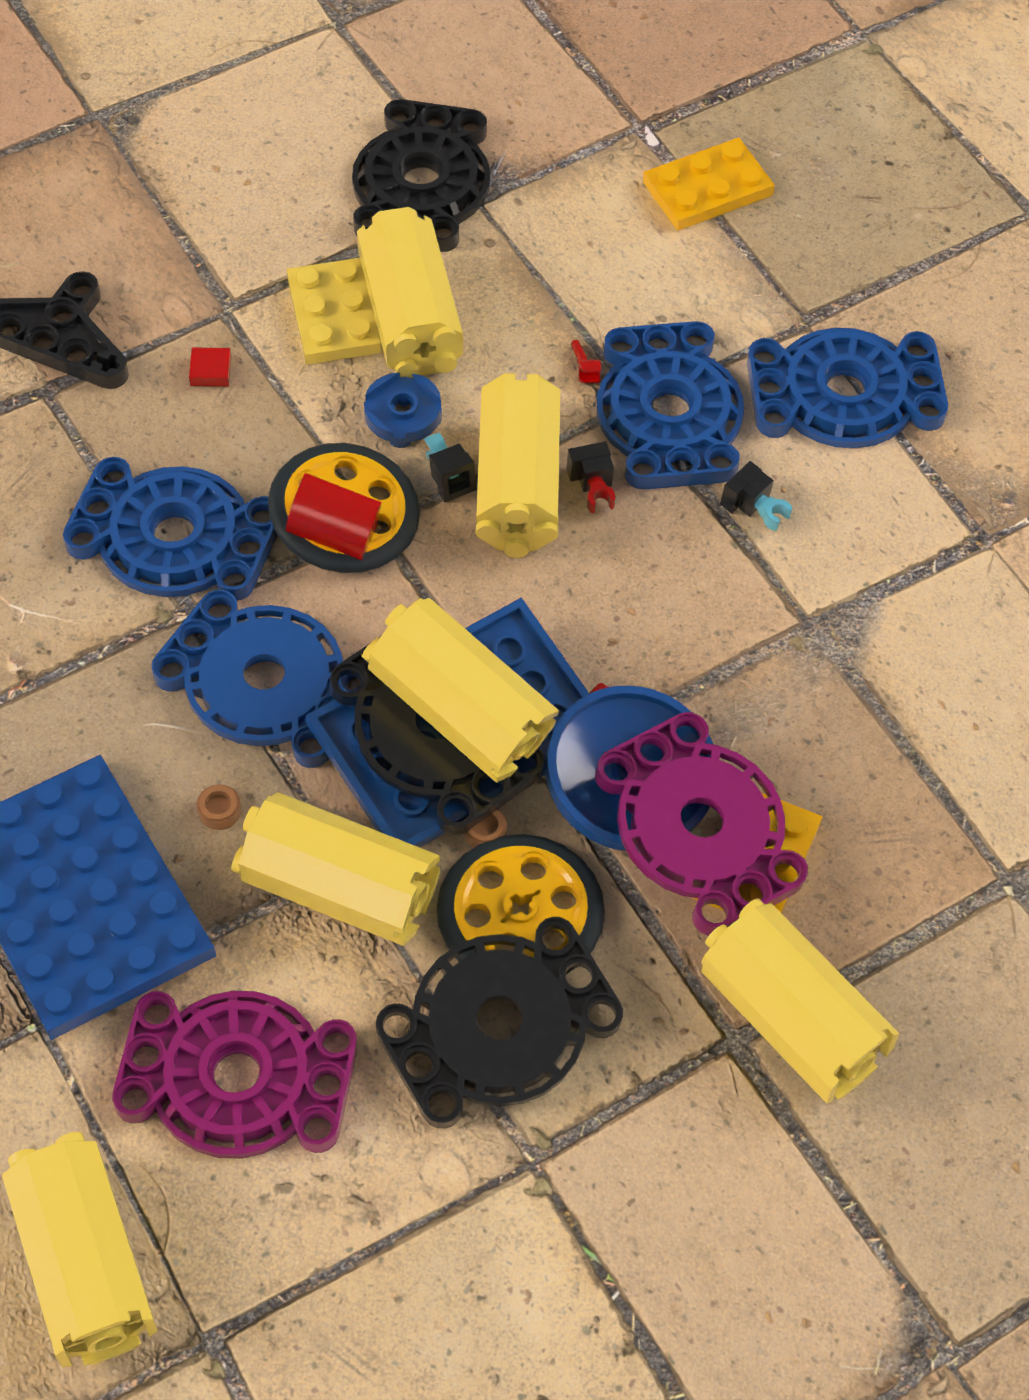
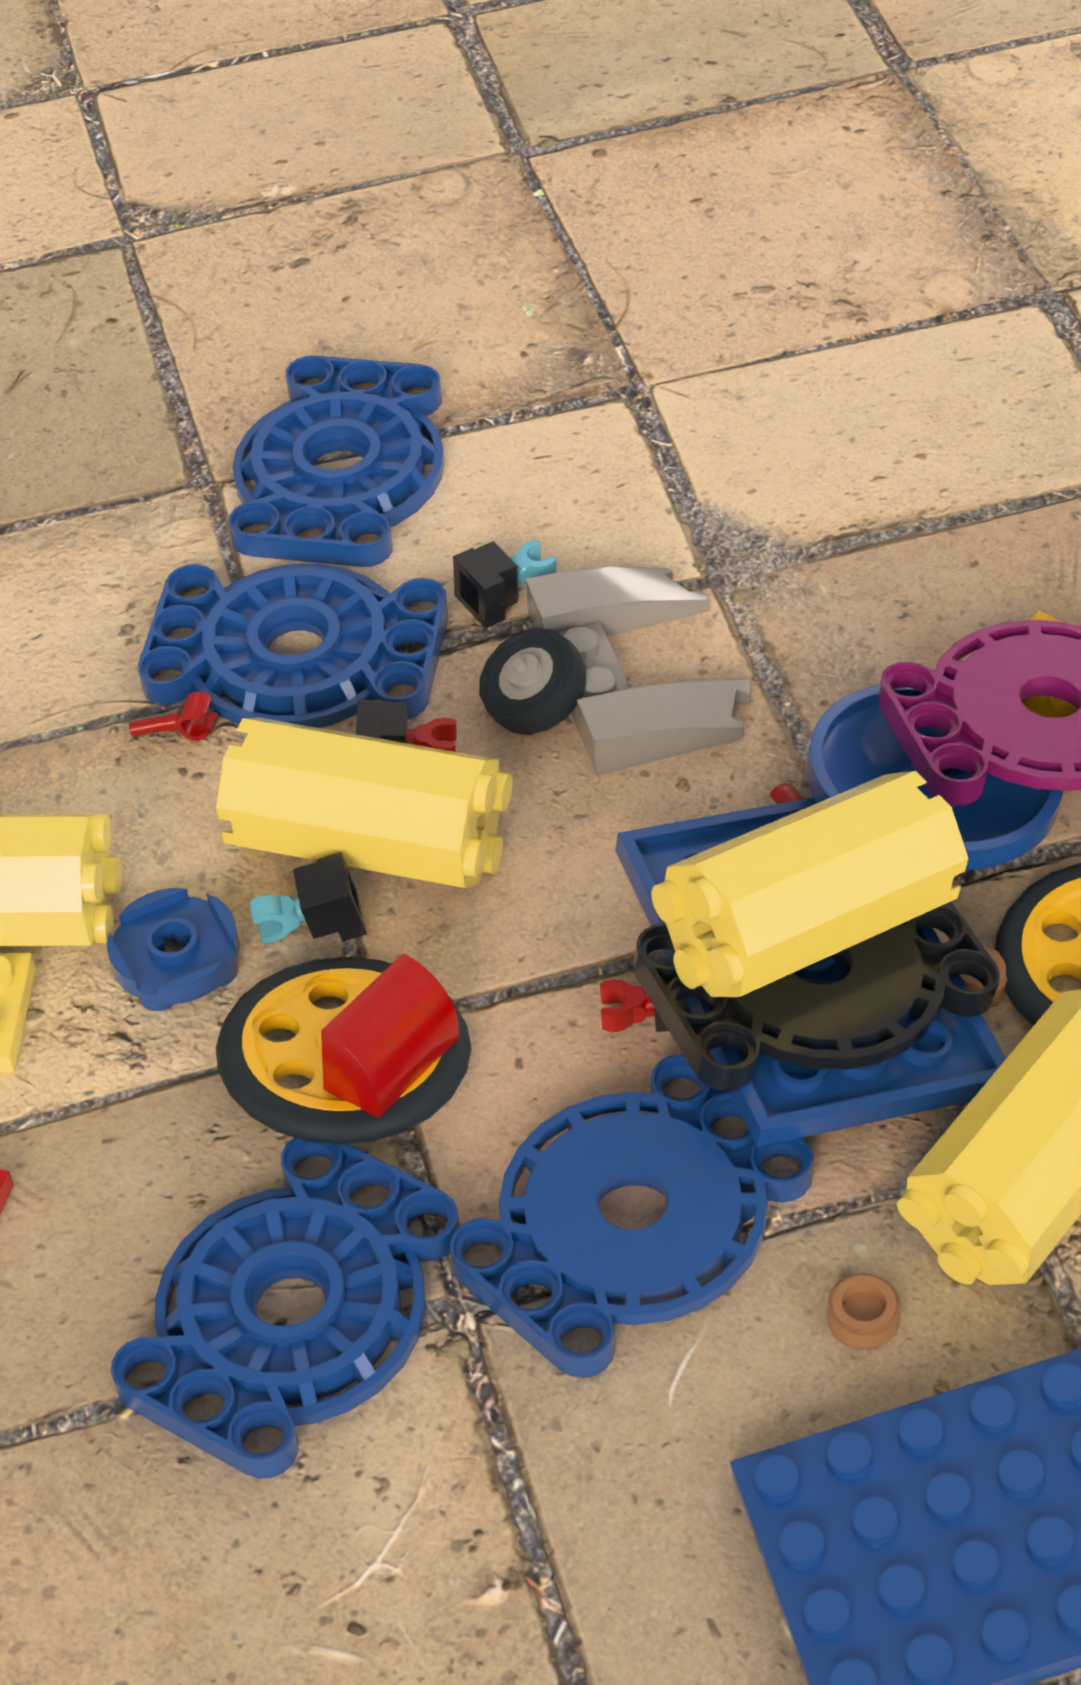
camera: 70 degrees left, 10 degrees down
(660, 533) = (532, 681): none -> black wheel
(735, 543) = (620, 722): none -> light grey wedge

